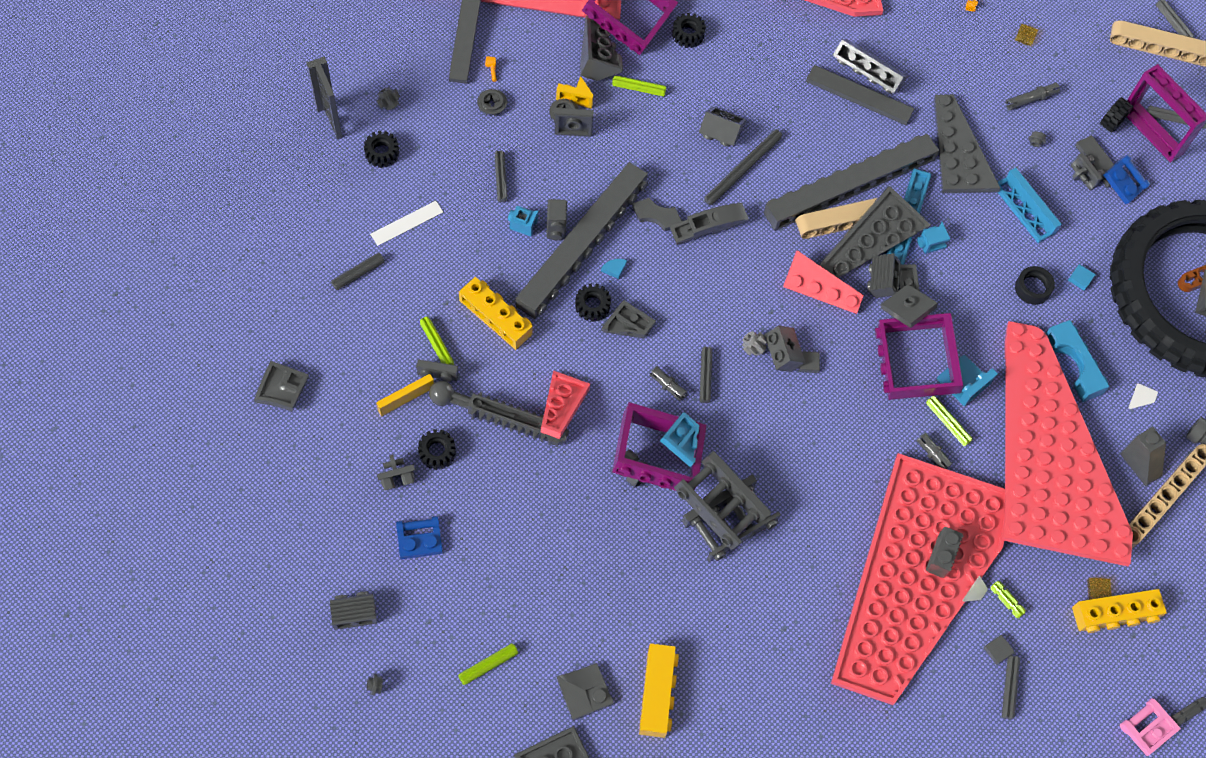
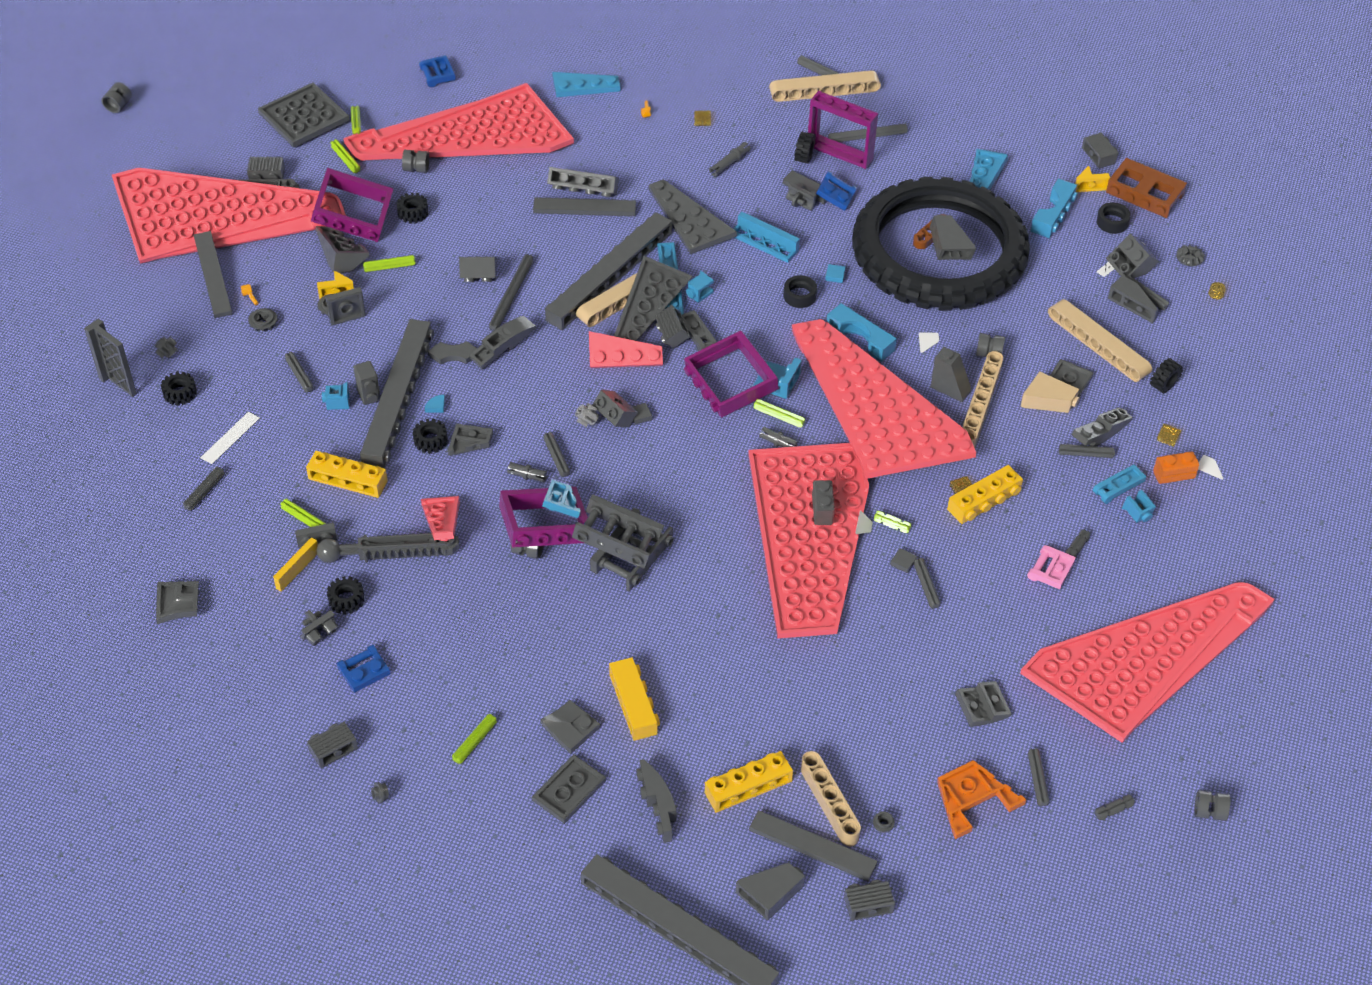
camera: 20 degrees left, 15 degrees down
(909, 305) = (703, 338): dark grey plate -> none
(1037, 139) = (749, 188): dark grey plate -> none

